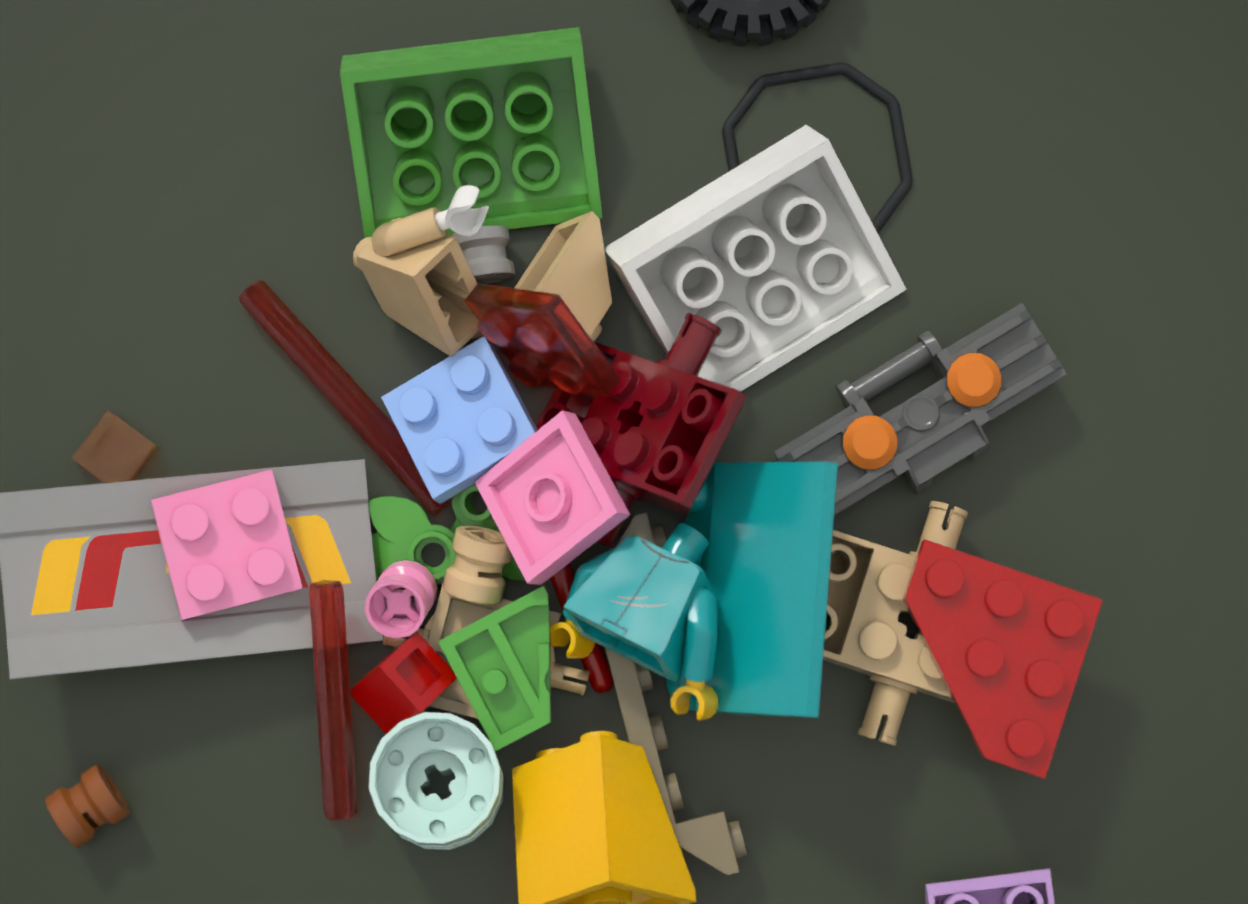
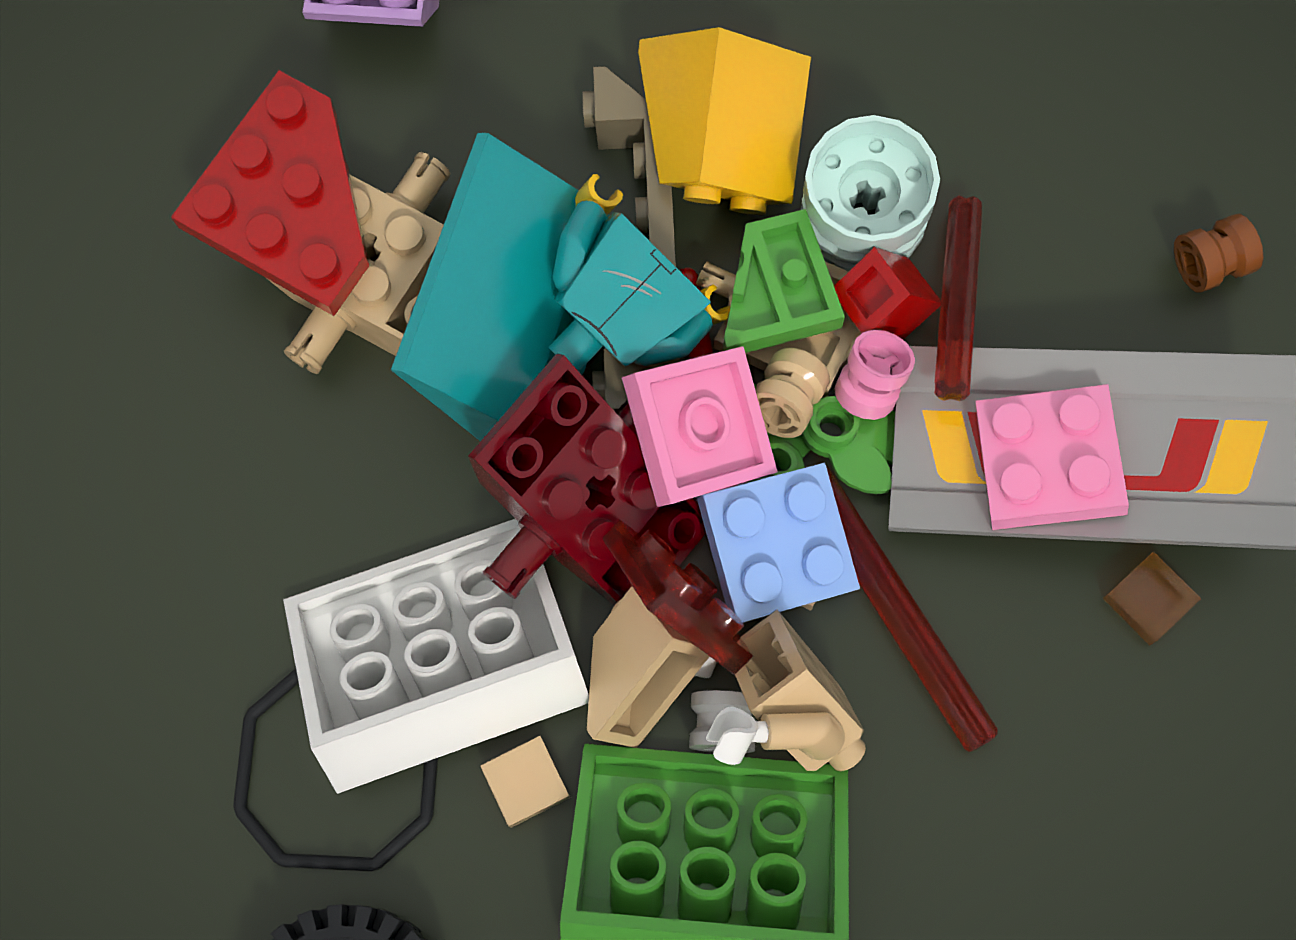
camera: 165 degrees left, 10 degrees down
(646, 174) = (525, 781): none -> tan tile
(939, 425) = (291, 440): dark grey piece -> none

